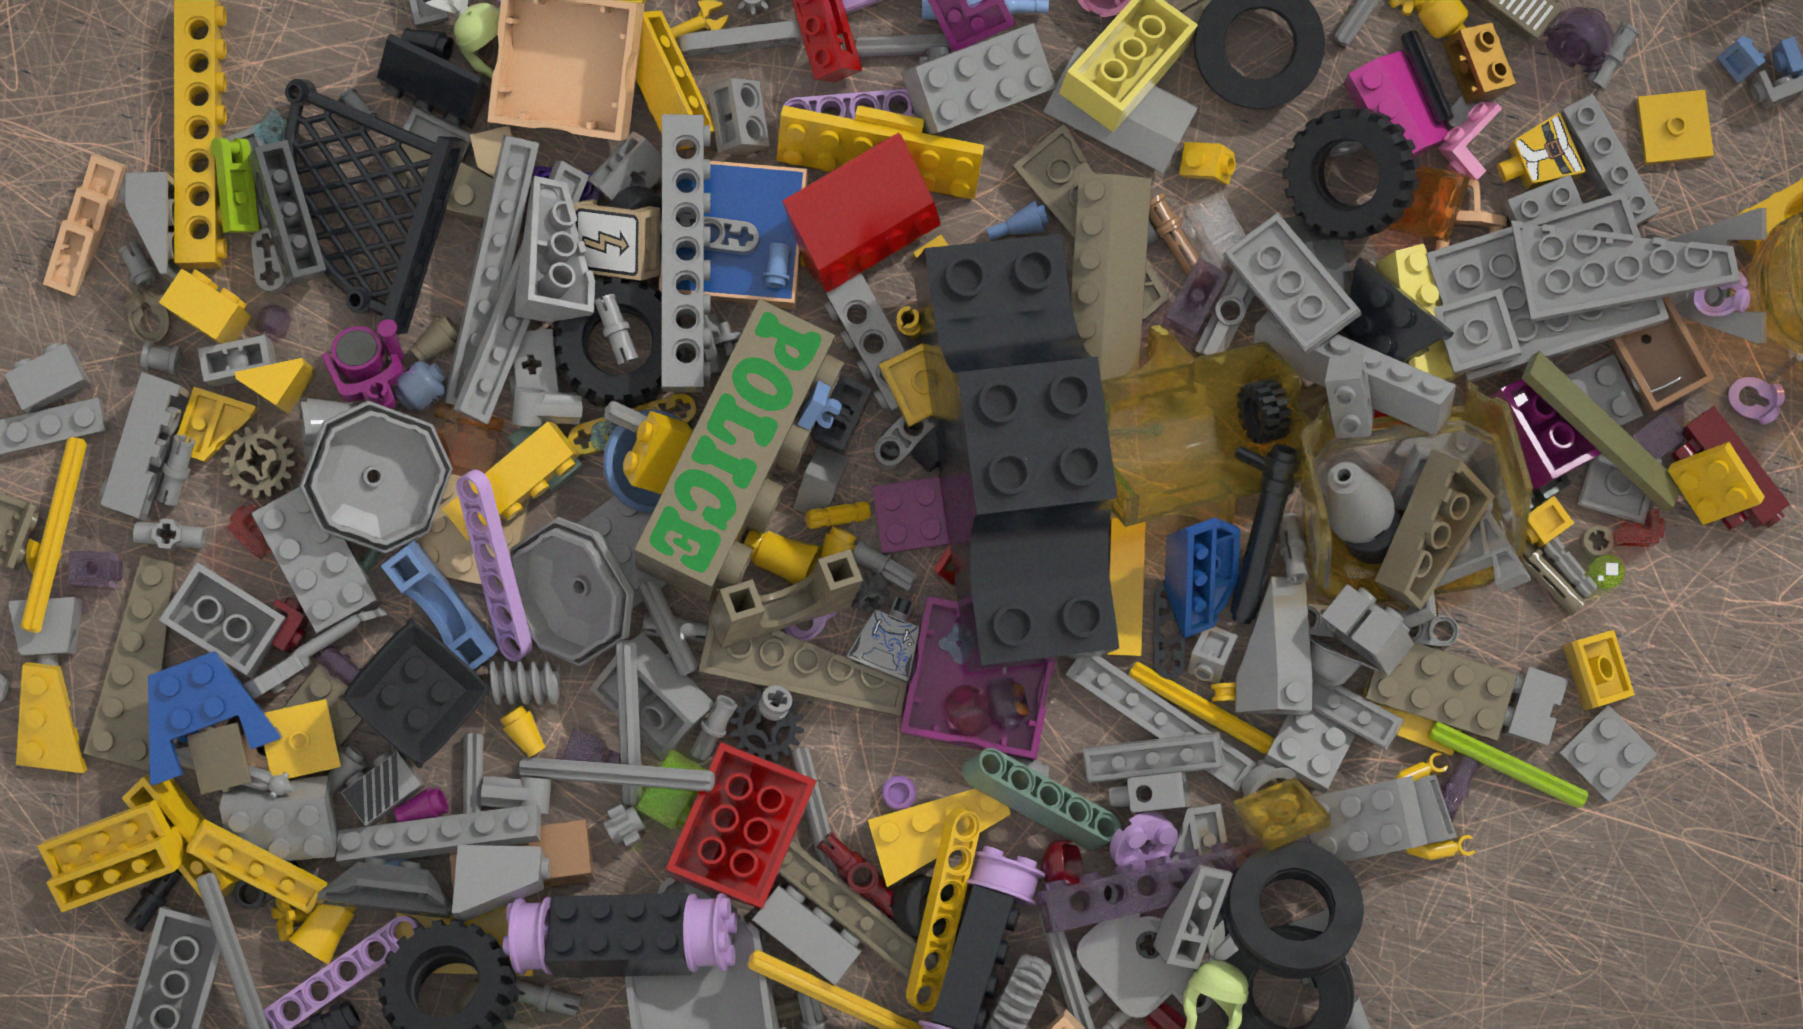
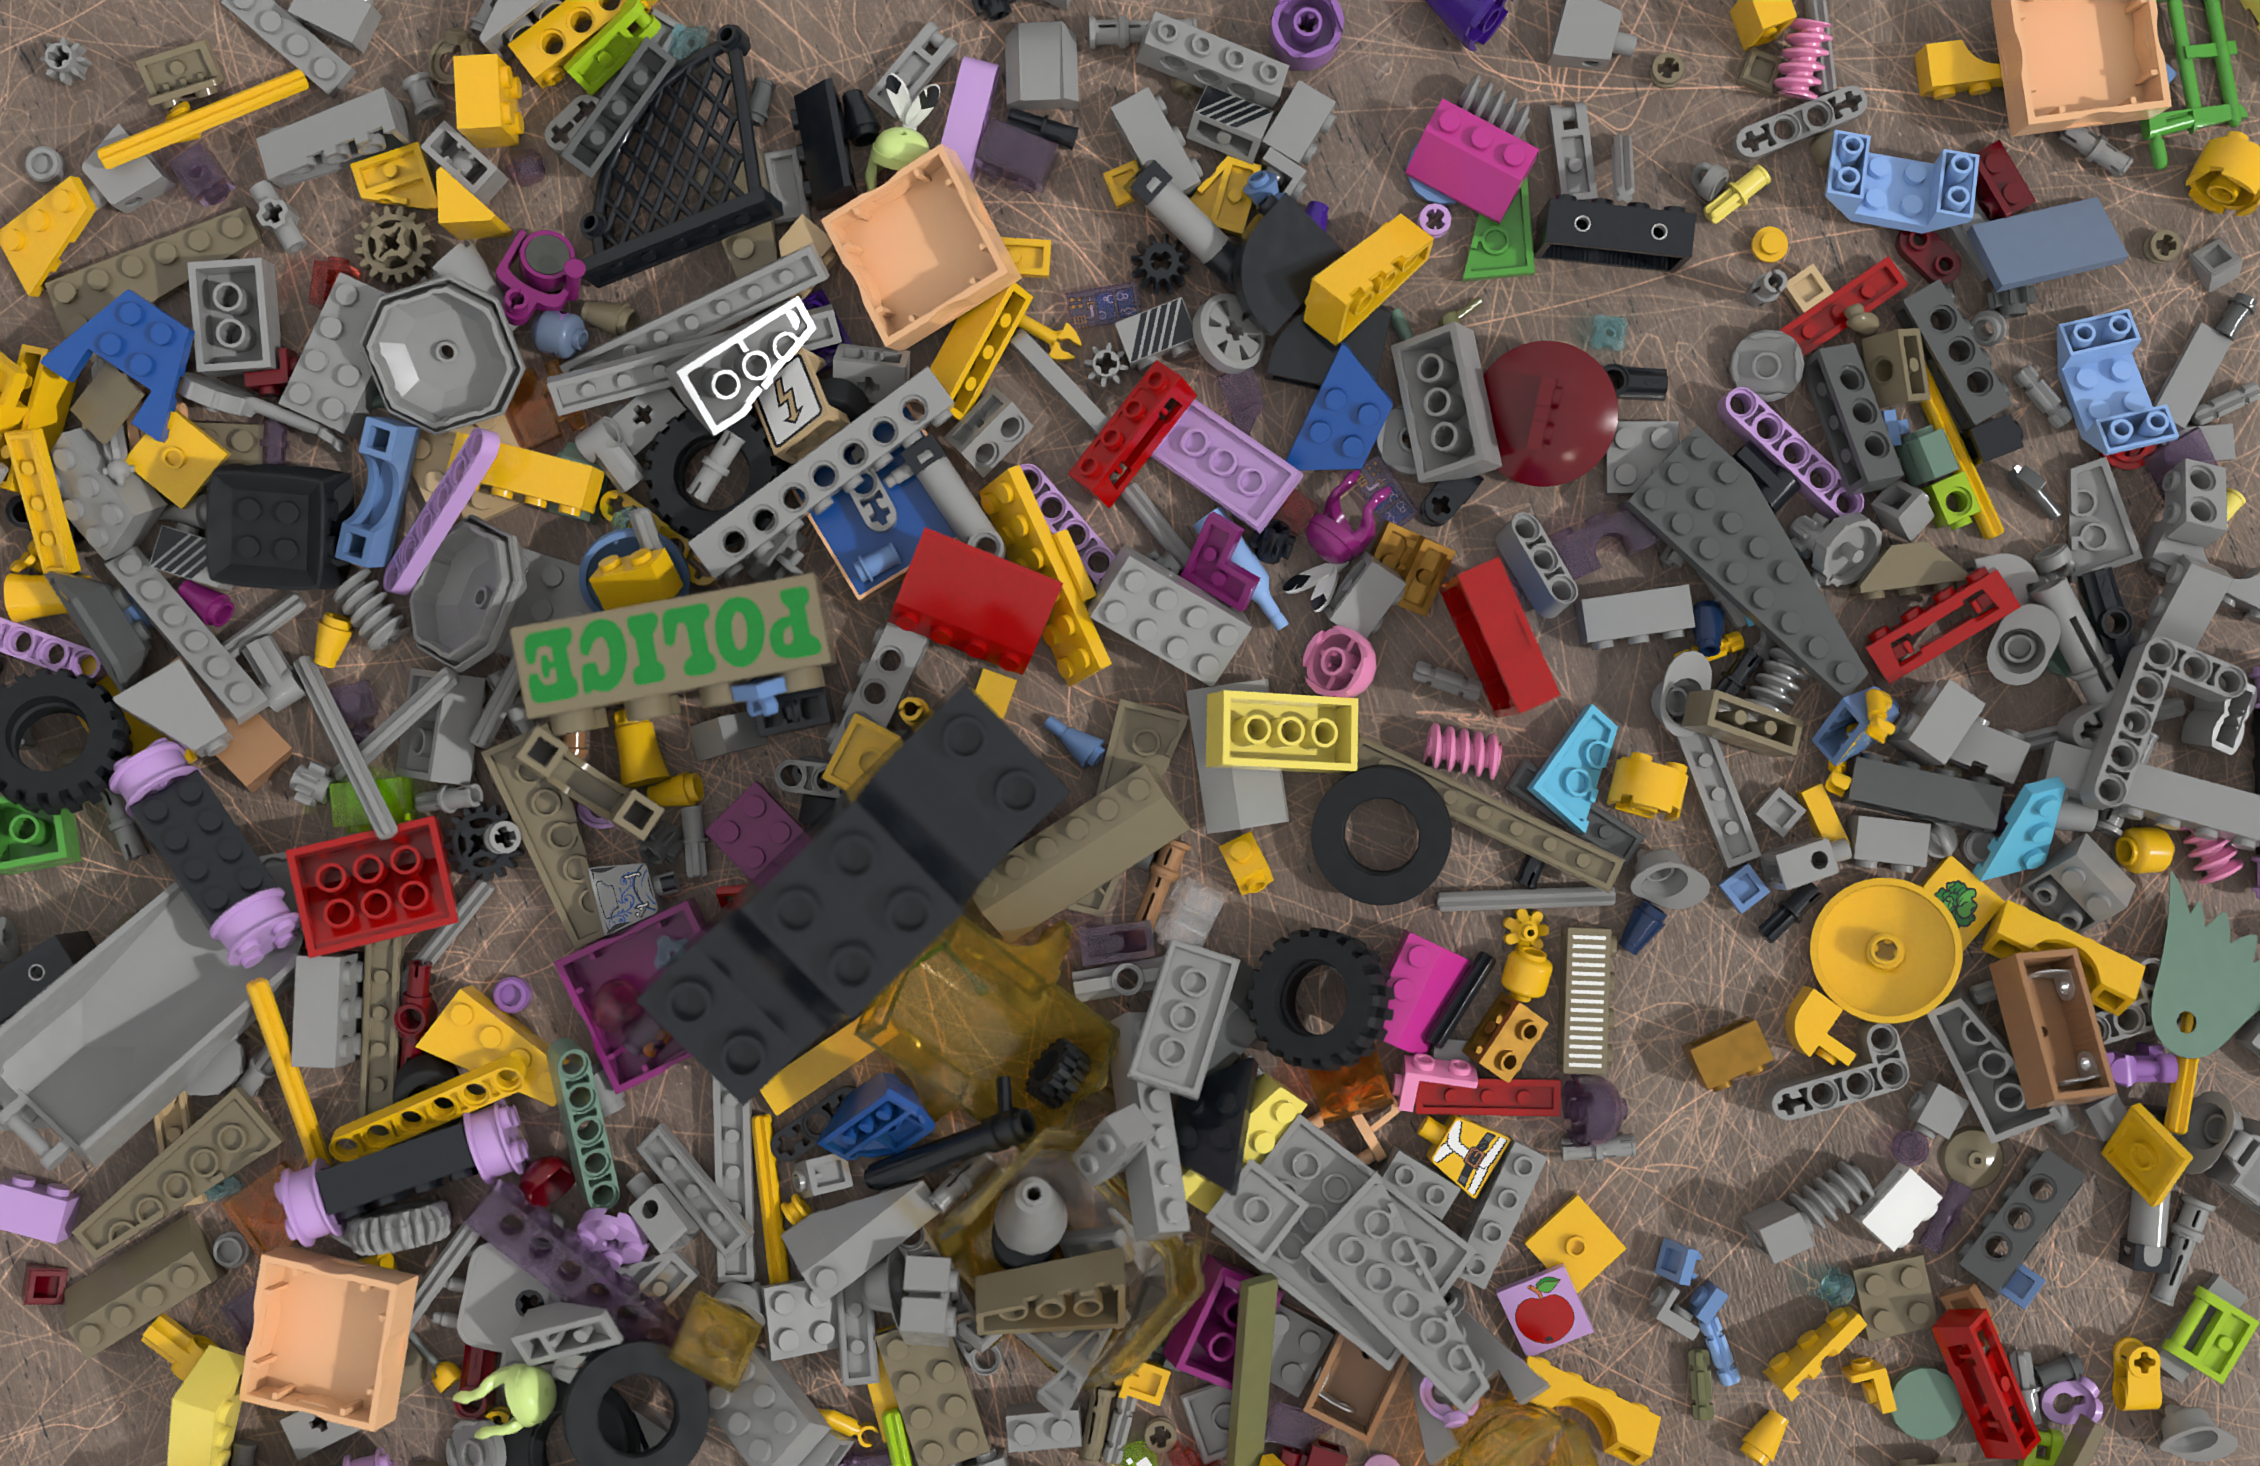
camera: 50 degrees right, 5 degrees up
(176, 470) = (335, 180): light grey pin -> none
(763, 173) = (947, 492): none -> light grey piece
(837, 515) = (707, 770): yellow axle -> none
(1517, 107) = (1492, 1097): none -> red plate
(1526, 621) = (1036, 1428): none -> light grey brick
(1708, 182) = (1545, 1310): none -> tile

